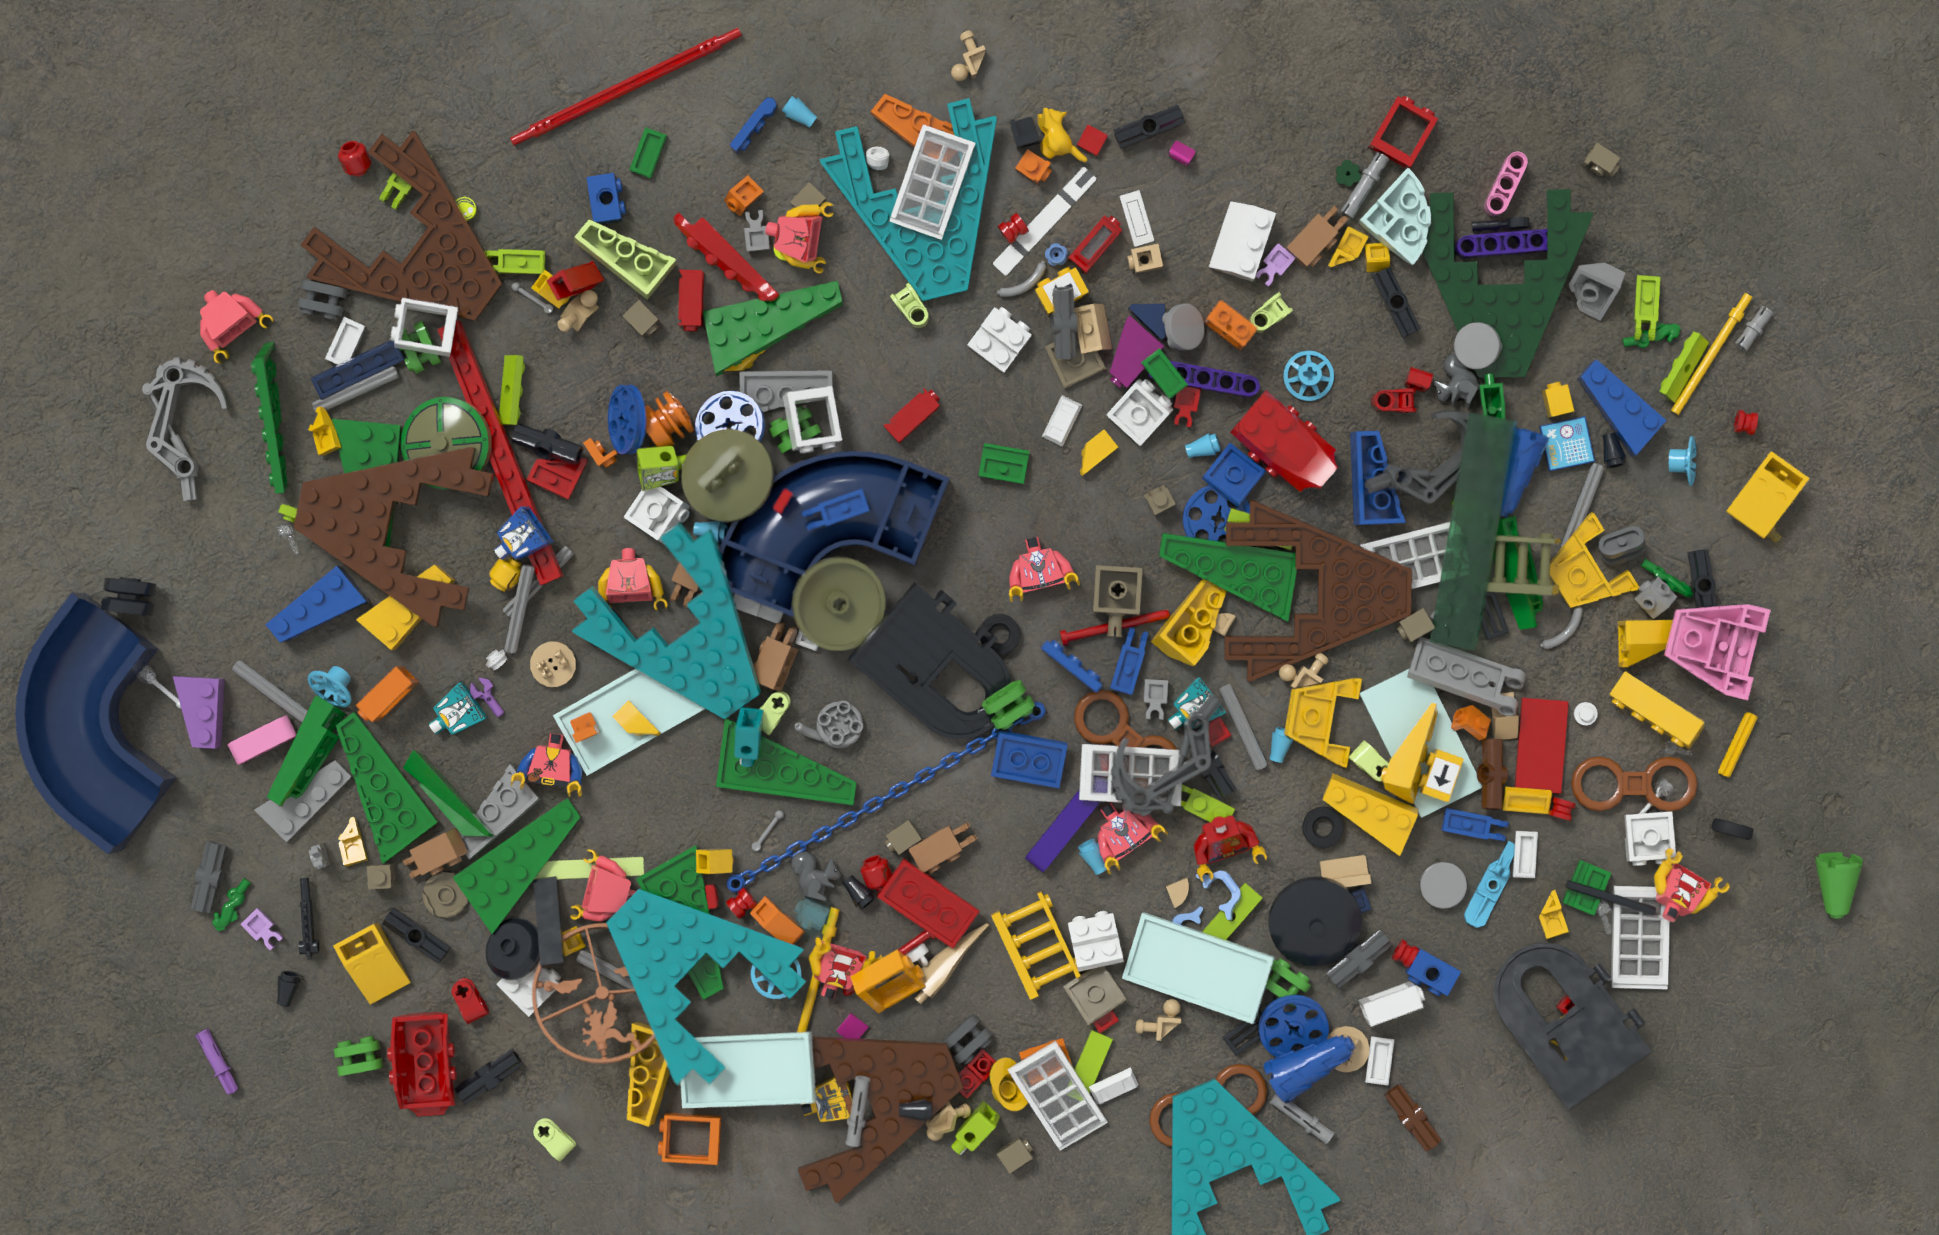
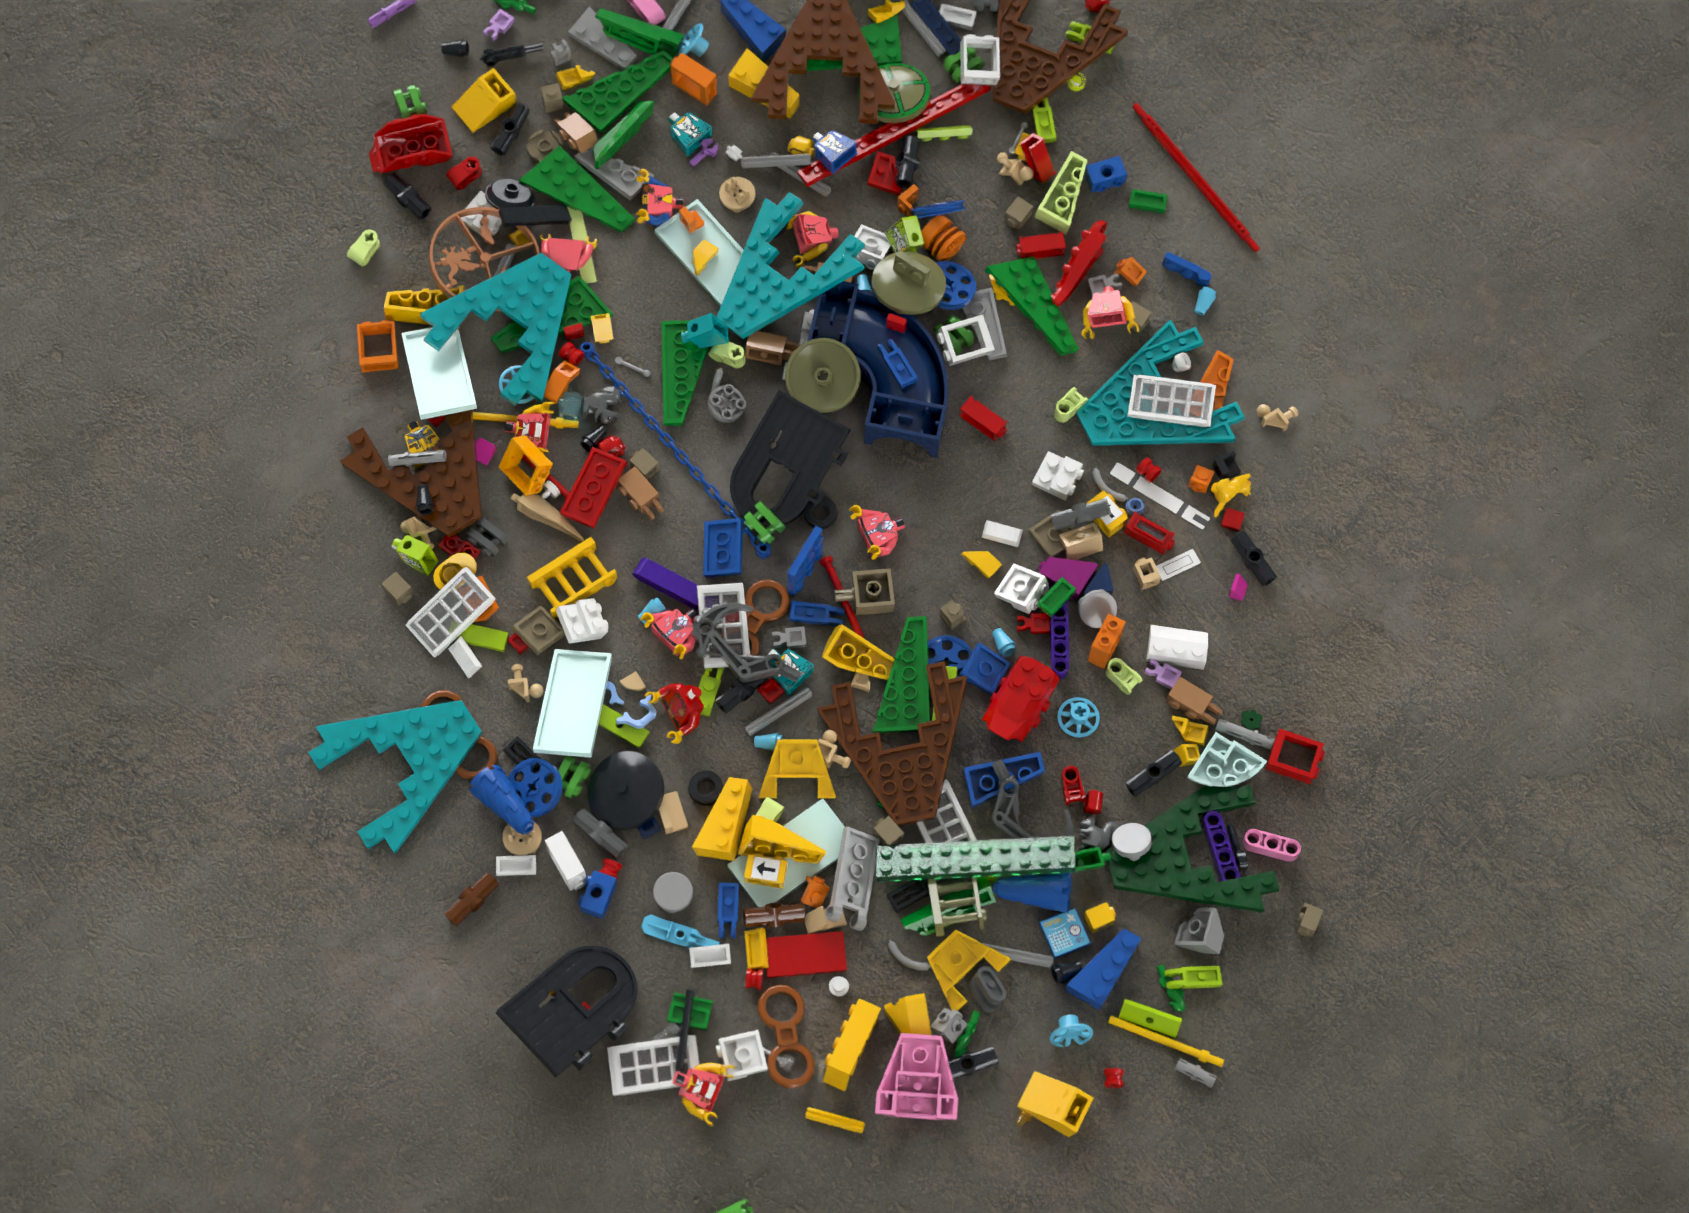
camera: 70 degrees right, 20 degrees down
(1003, 463) = (958, 493): green plate -> none
(1310, 1123) = (456, 814): light grey pin -> none
(1552, 919) = (659, 988): yellow slope -> none
(1732, 829) = (761, 1123): black tyre -> none

